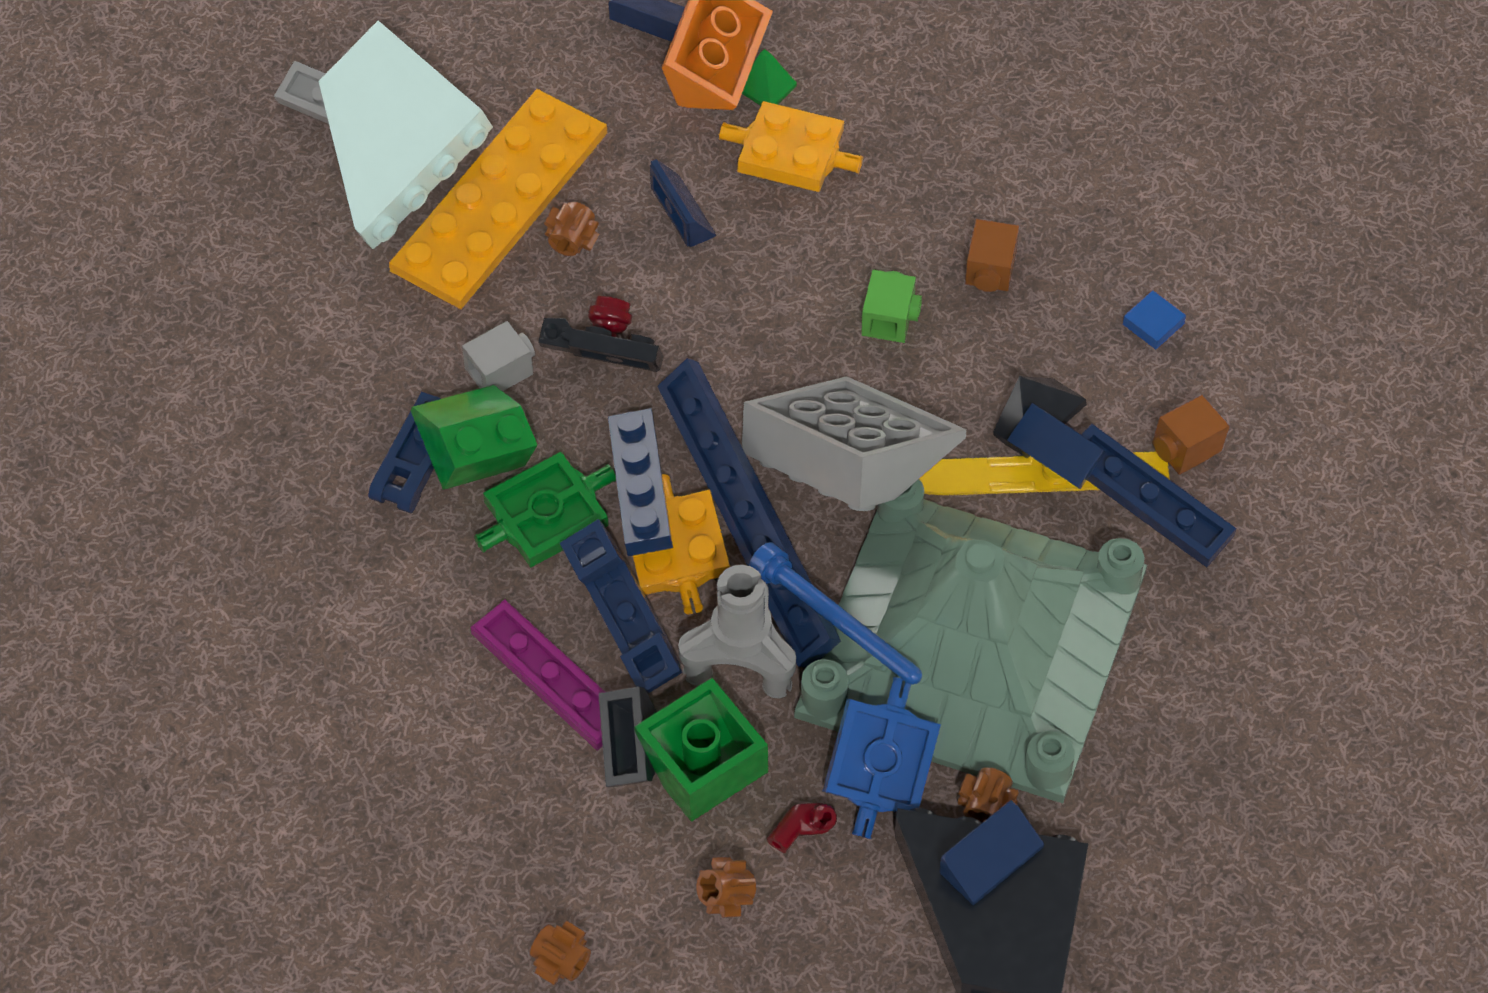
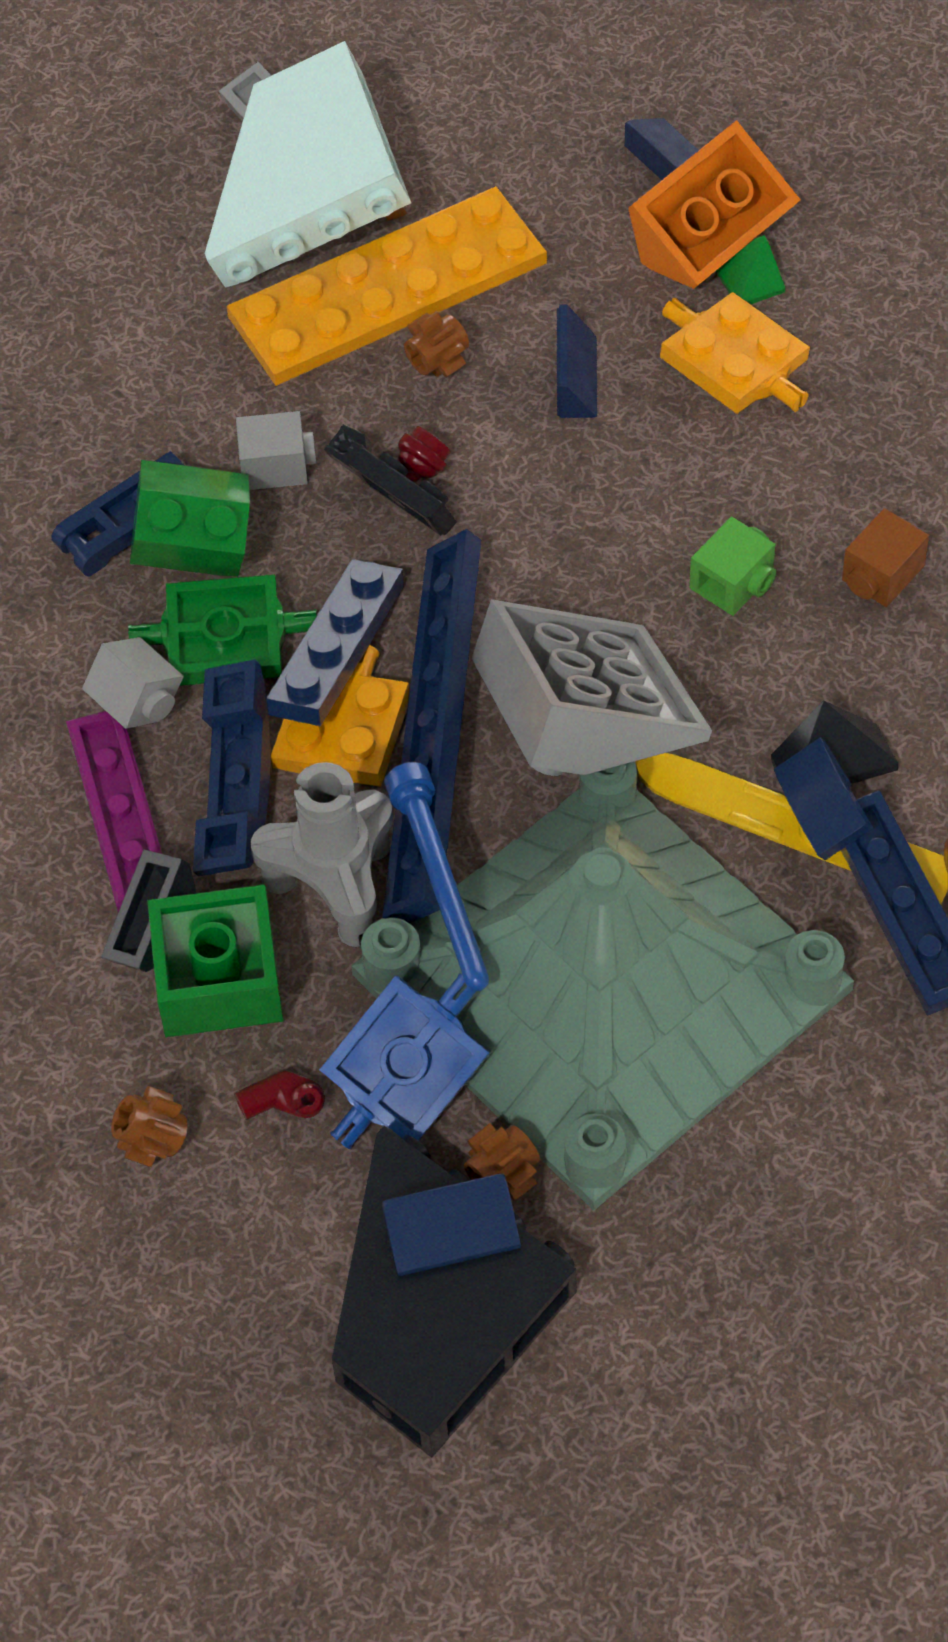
camera: 30 degrees right, 0 degrees up
(509, 576) = (132, 682): none -> light grey brick

